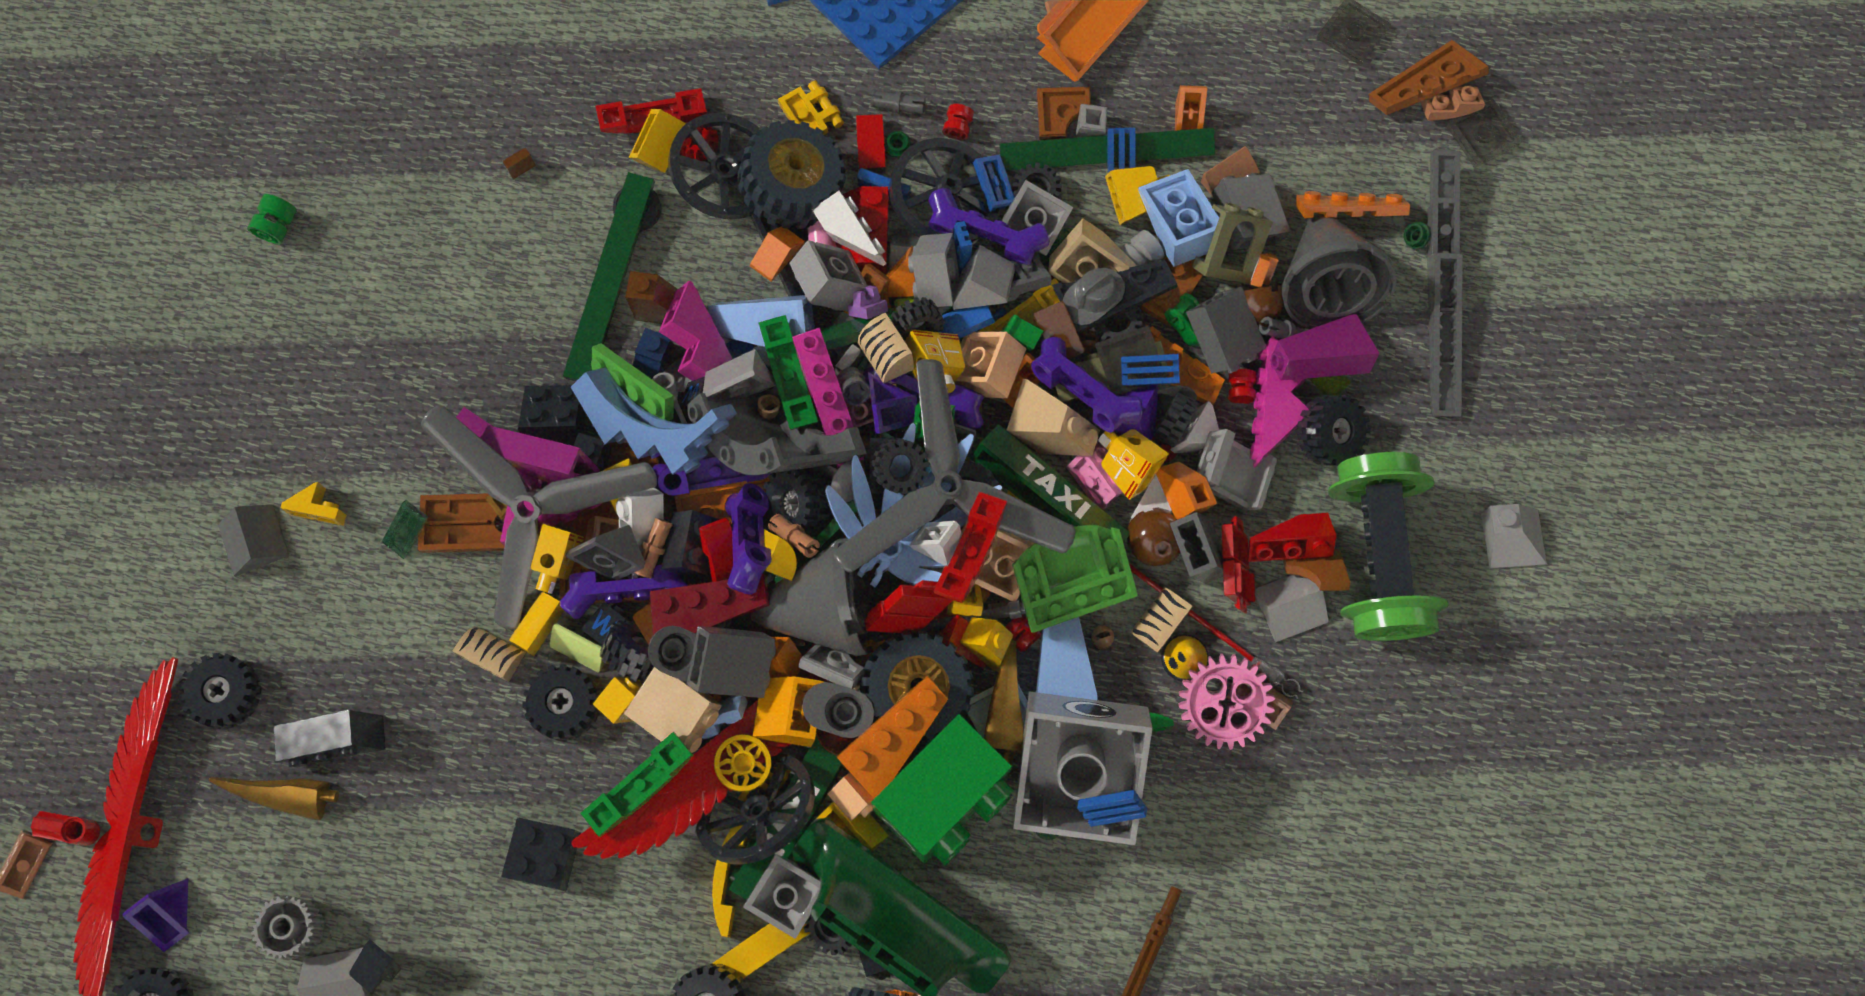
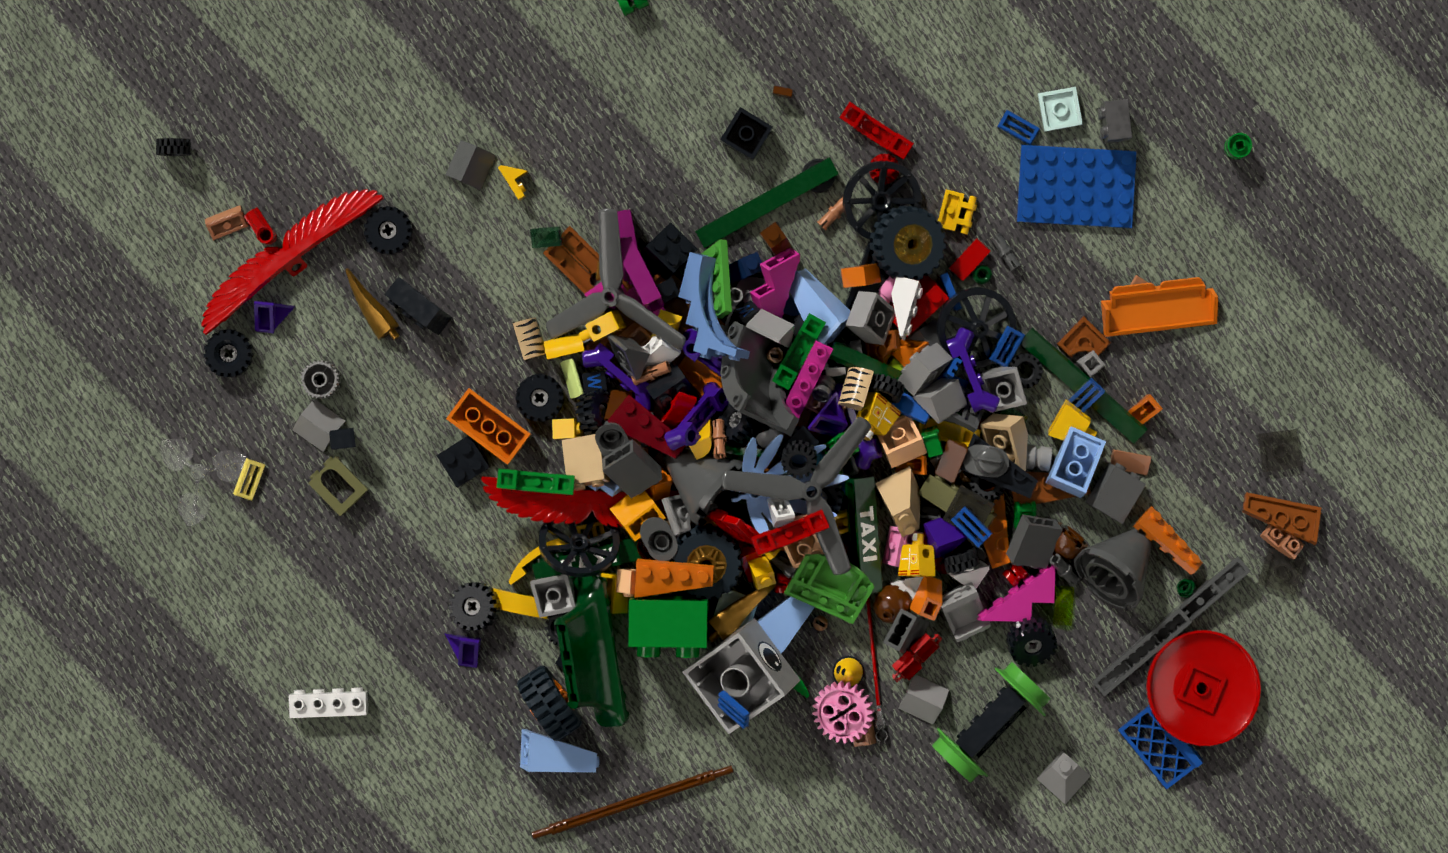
camera: 50 degrees right, 15 degrees up
(520, 232) = (746, 134): none -> black brick
(531, 785) = (488, 426): none -> orange slope
(656, 140) = (863, 150): yellow brick -> none
(689, 226) = (833, 214): none -> nougat pin
(742, 763) = (593, 516): yellow wheel -> none
(867, 306) = (873, 352): medium lavender tile -> none
(958, 120) = (1019, 296): red wheel -> none
(1108, 409) = (927, 528): dark purple plate -> none
(1161, 619) = (854, 644): tan brick -> none
(1229, 218) = (1073, 514): olive panel -> none
(1264, 270) = (1086, 530): orange slope -> none
(1295, 539) = (958, 673): red slope -> none
(1325, 572) = (955, 695): dark orange tile -> none
(1326, 351) = (1070, 601): magenta slope -> none
(1552, 273) = (1229, 680): none -> red dish
(1568, 382) = (1186, 750): none -> blue fence

